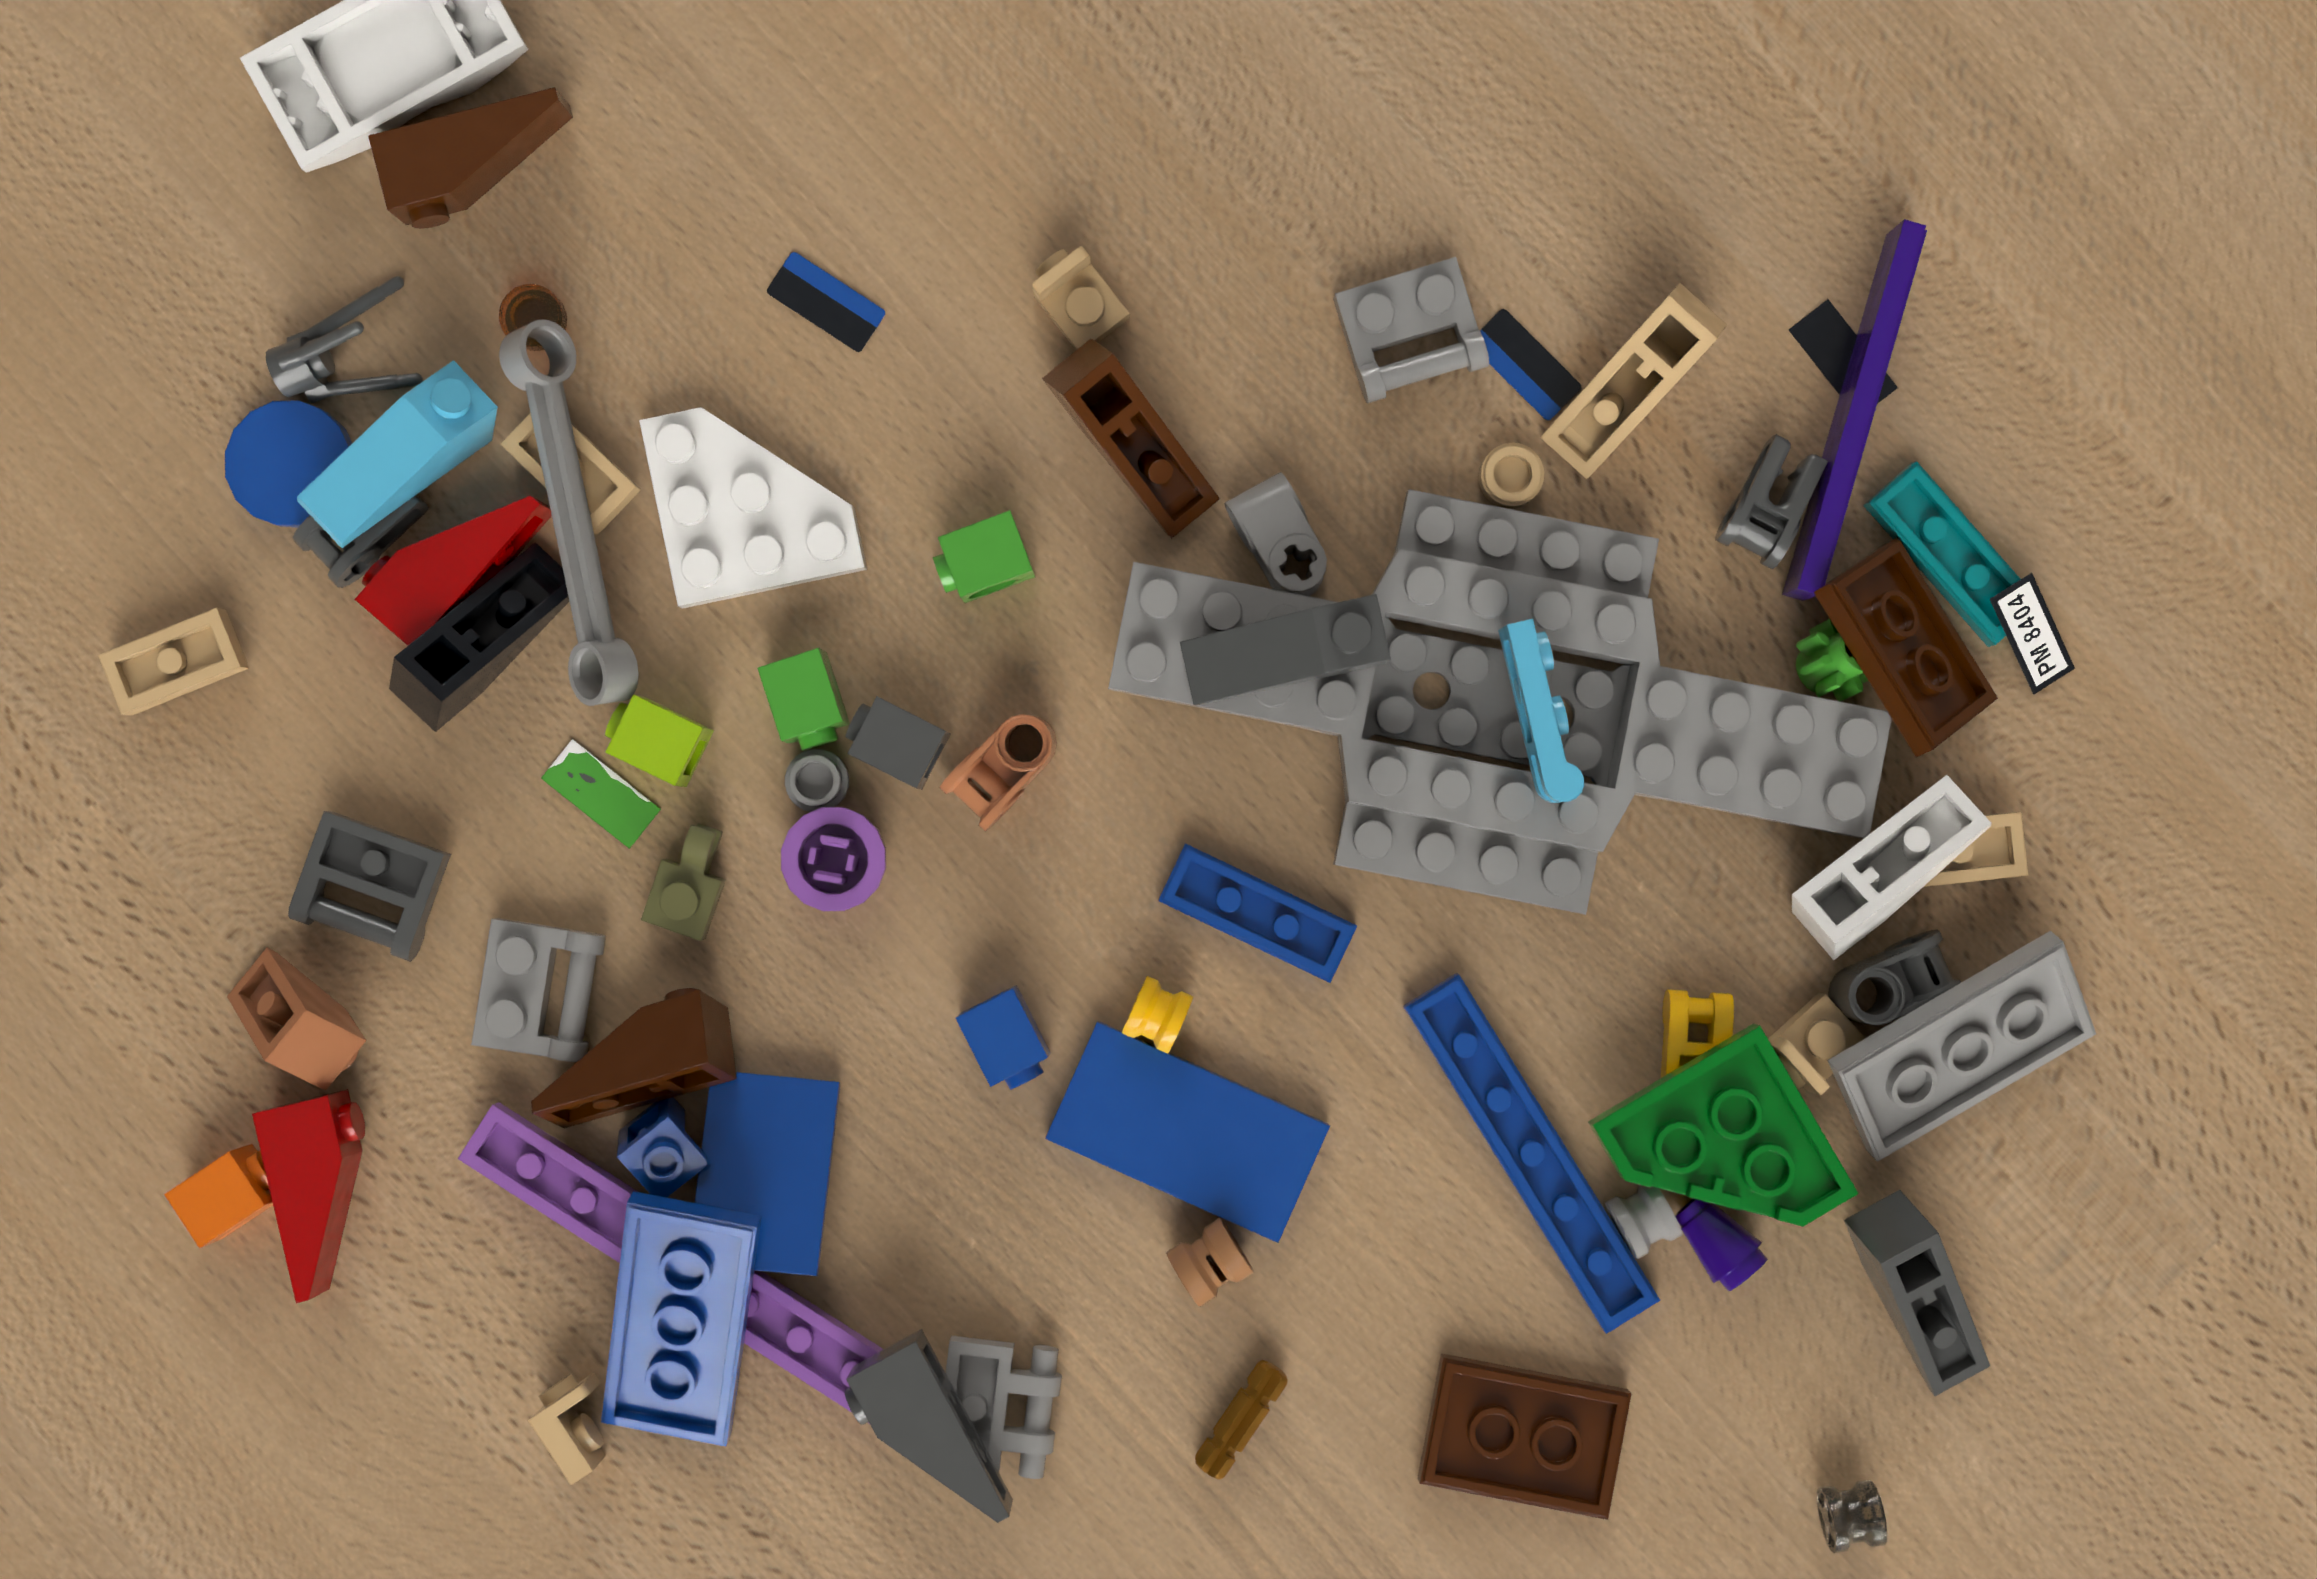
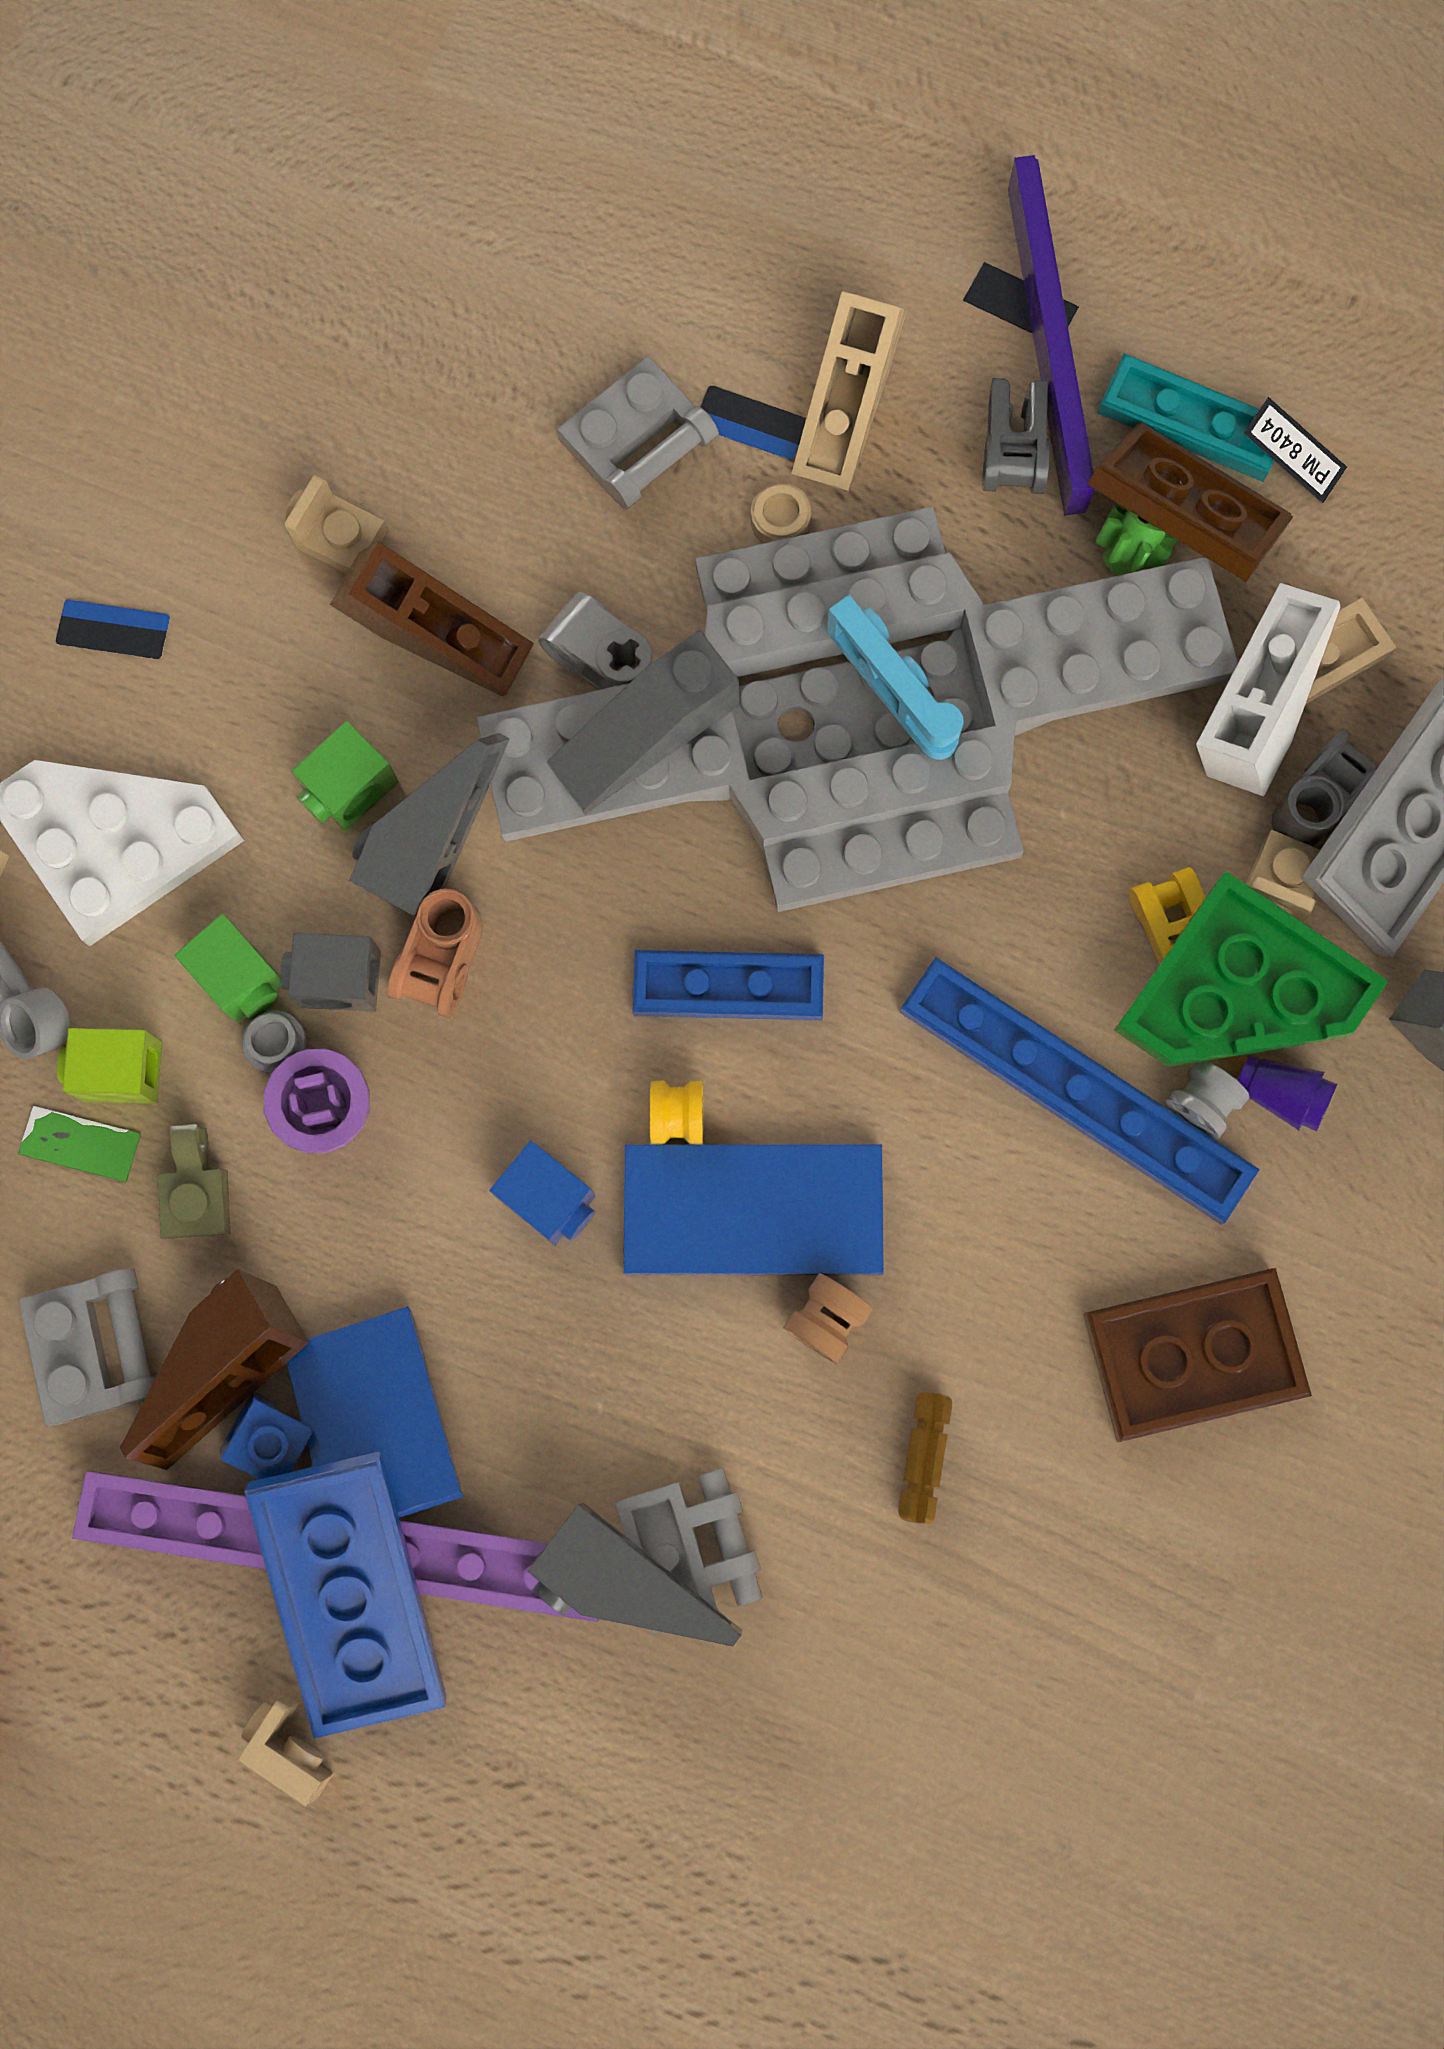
camera: 15 degrees left, 10 degrees down
(1028, 656) = (422, 836): none -> dark grey slope

